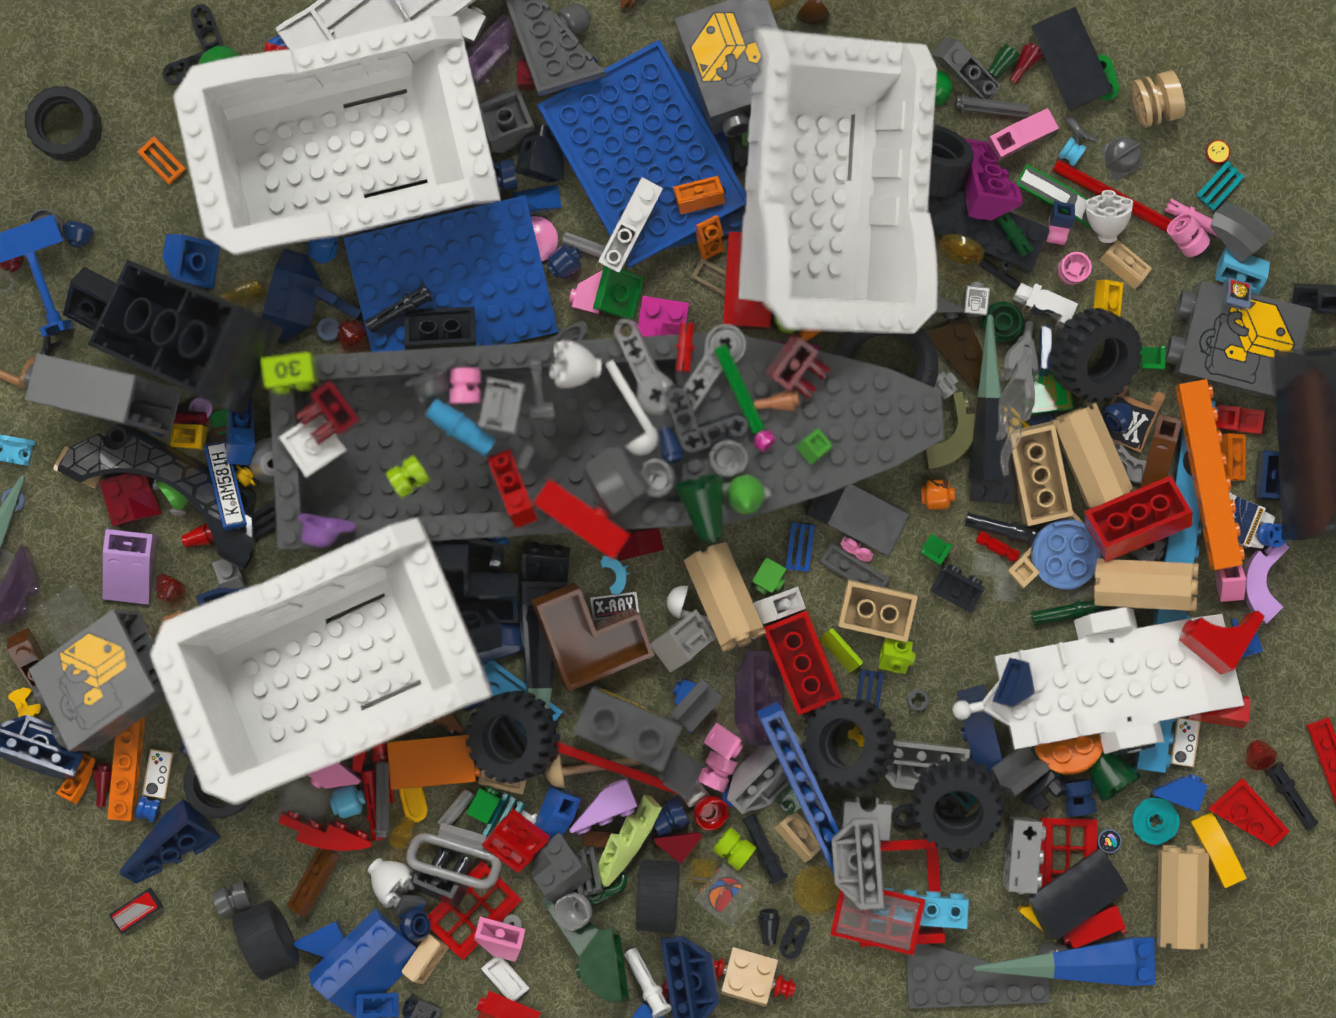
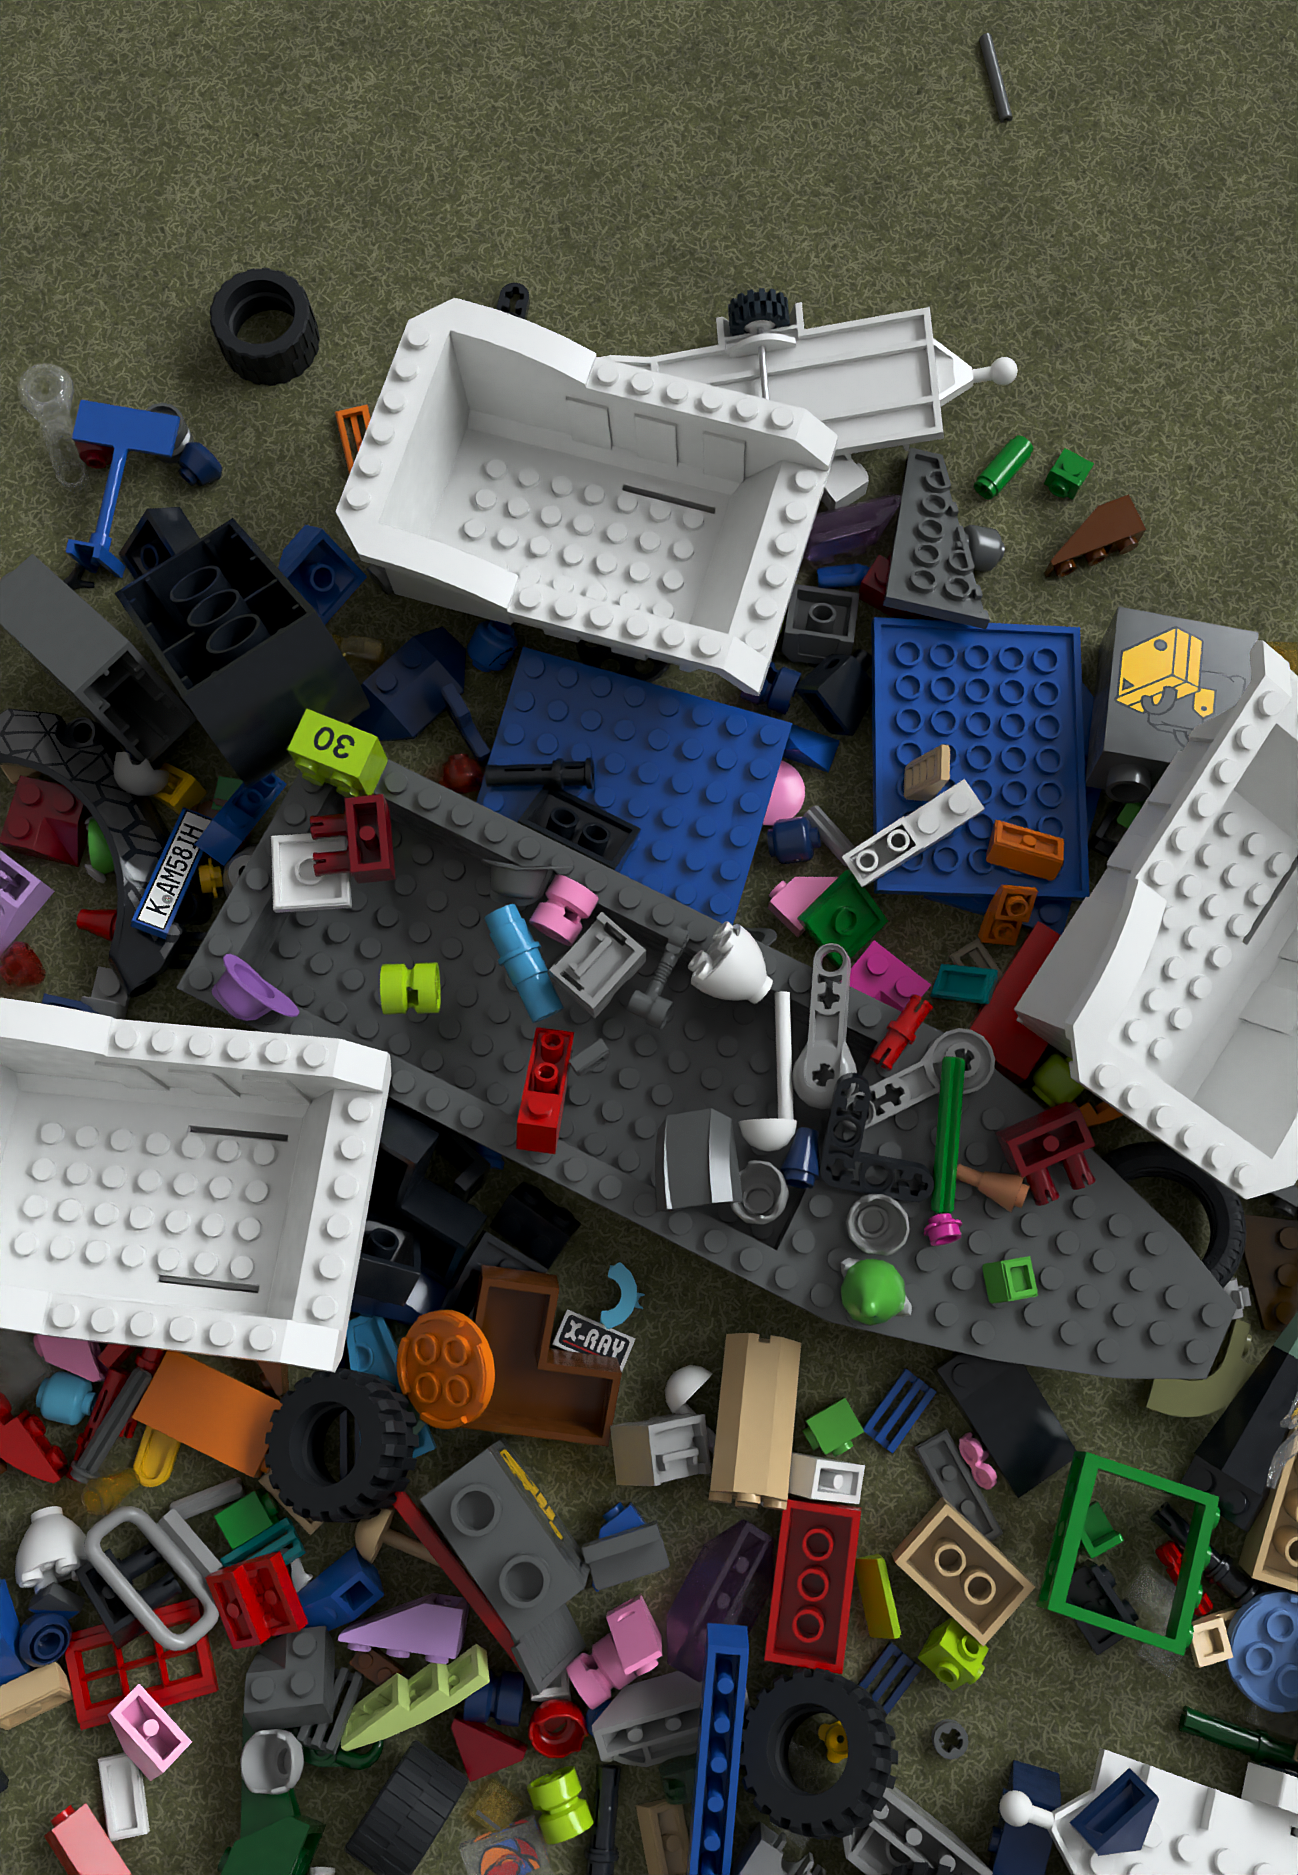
camera: 30 degrees right, 10 degrees down
(169, 445) = (137, 777): none -> light grey hair
(190, 417) = (187, 762): dark red axle -> none
(201, 404) = (210, 763): lavender plate -> none
(328, 329) = (434, 754): sand blue tile -> none
(502, 82) = (841, 575): none -> blue piece
(513, 918) = (189, 1712): light grey piece -> none
(544, 665) = (446, 1369): none -> orange tile
(582, 519) = (617, 1189): red brick -> none
(619, 186) = (927, 774): none -> tan slope
(641, 544) = (676, 1274): dark red slope -> none
(703, 505) = (804, 1272): dark green cone -> none
(707, 290) = (965, 983): none -> teal tile
(920, 560) = (1068, 1537): none -> green window
(937, 494) = (1137, 1448): orange head -> none

